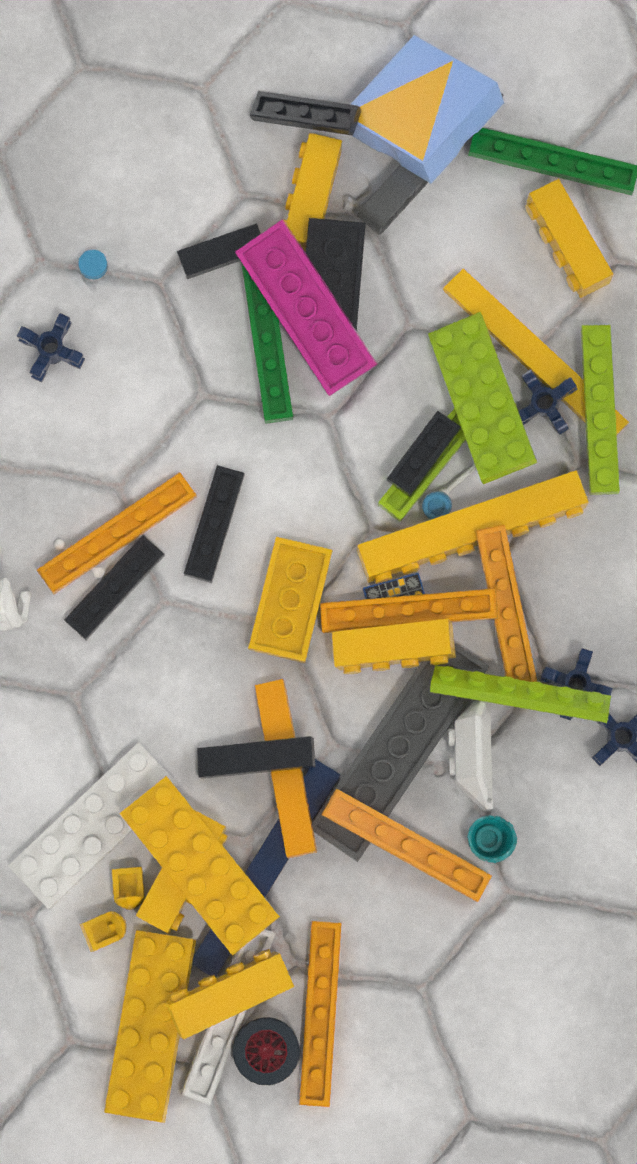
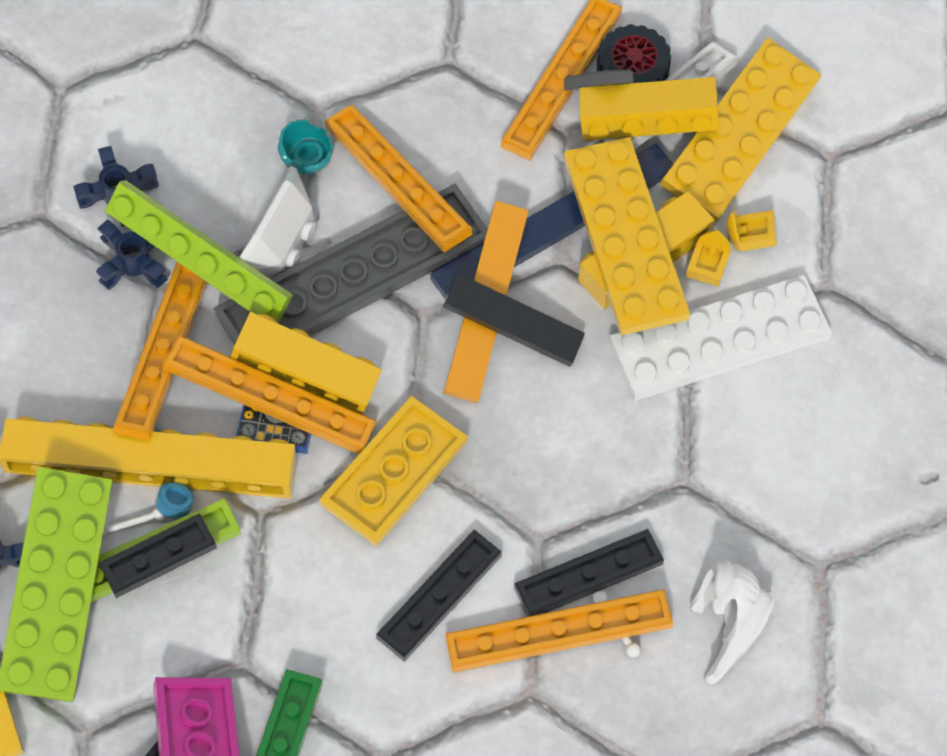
camera: 155 degrees left, 15 degrees down
(283, 1005) = (599, 78): none -> dark grey tile

